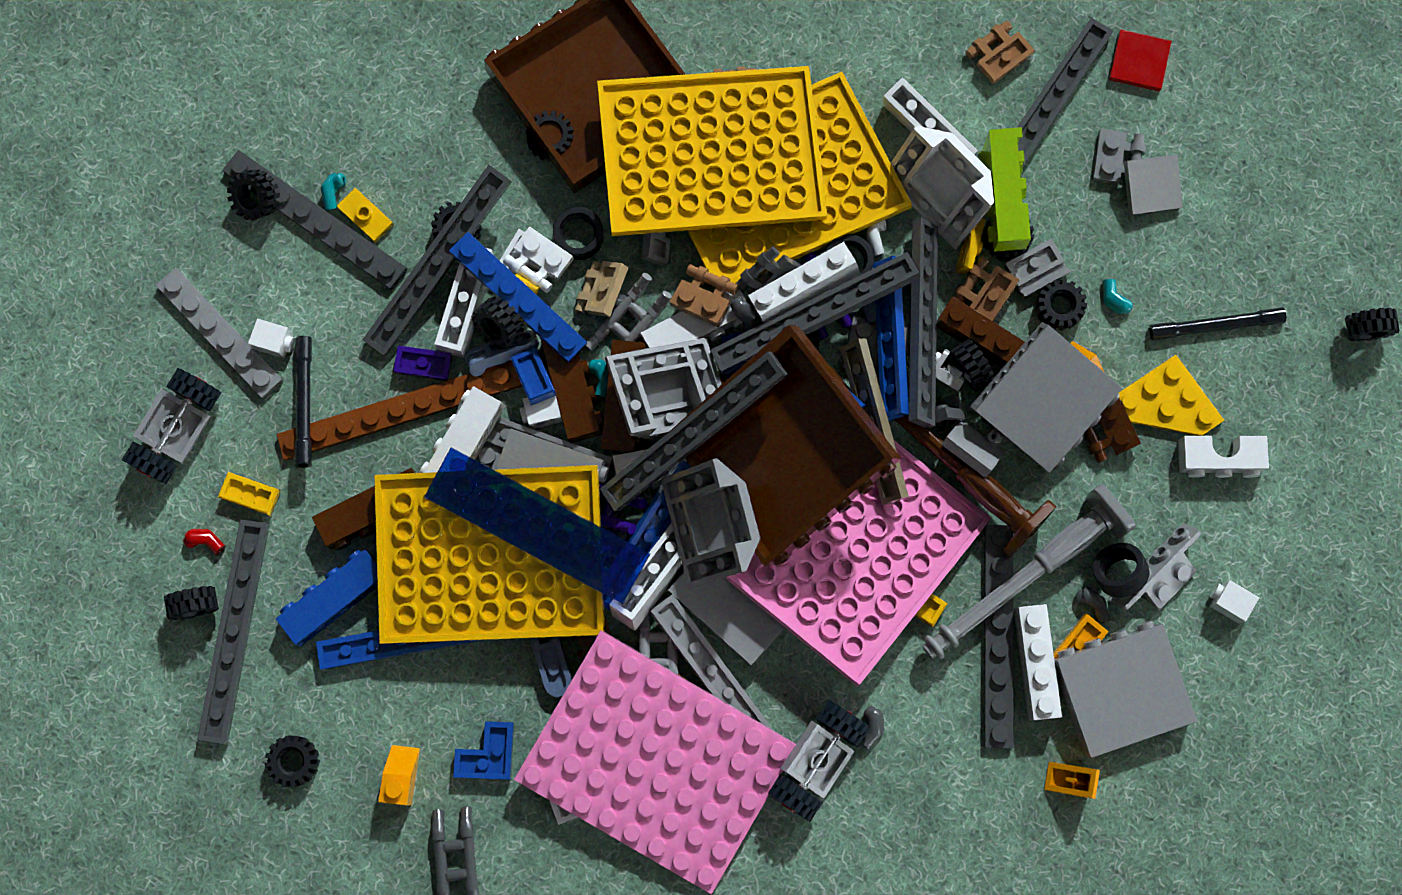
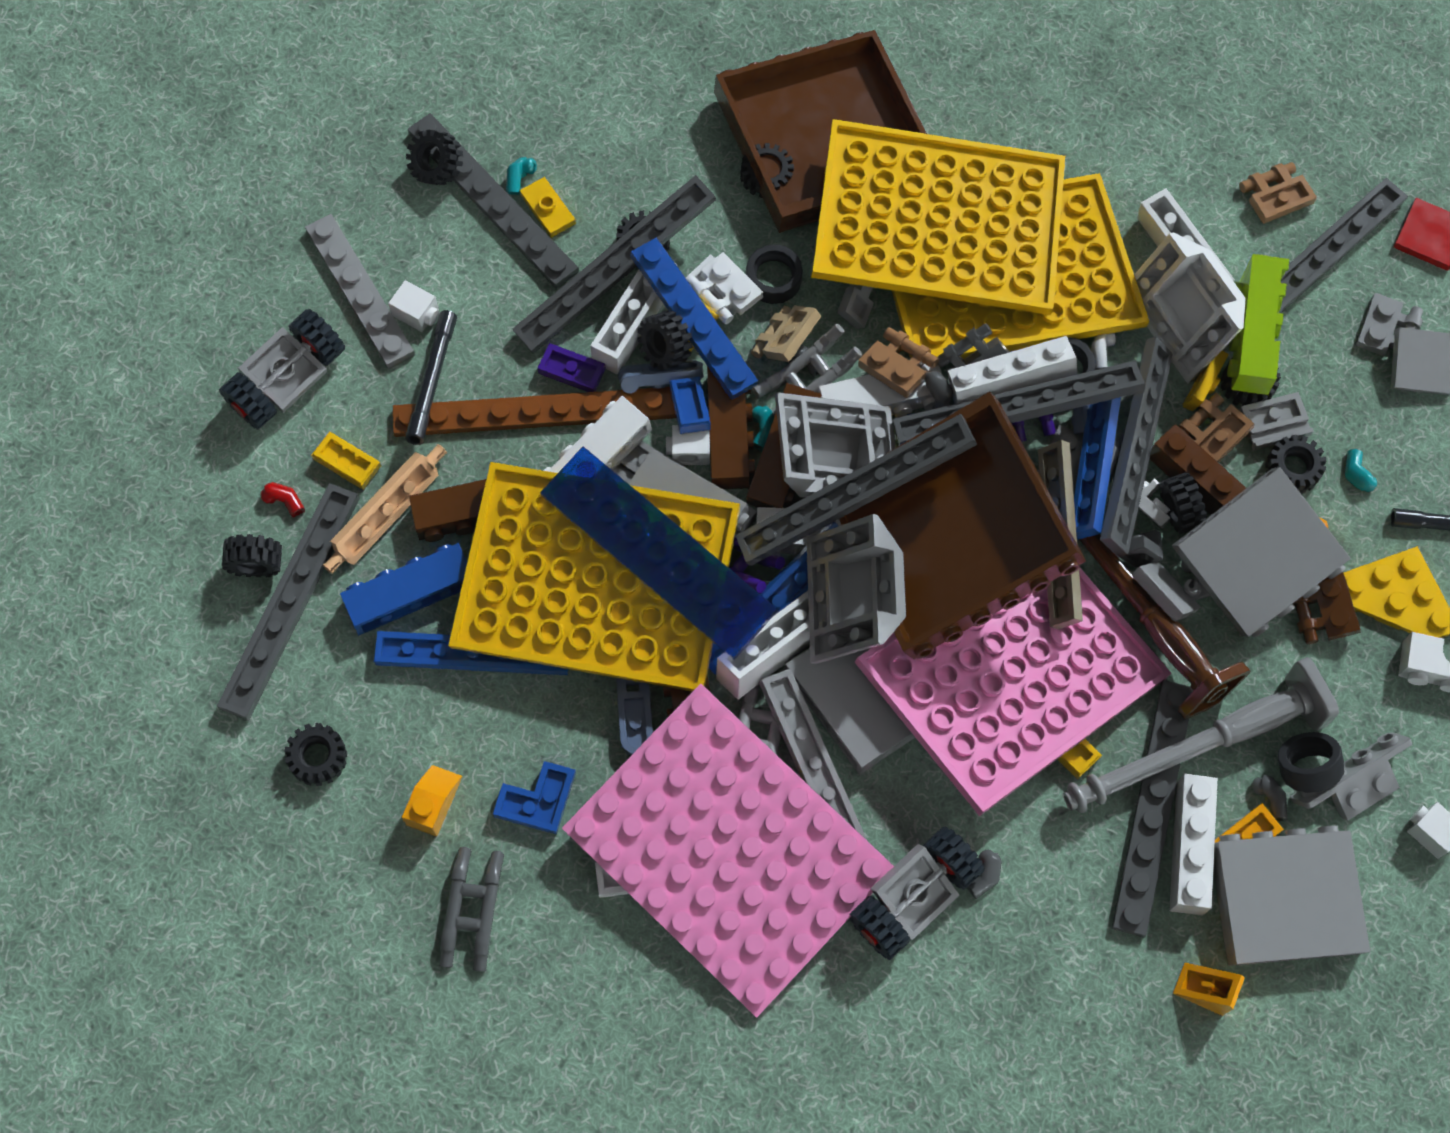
camera: 10 degrees right, 10 degrees down
(293, 530) = (384, 508): none -> light nougat plate

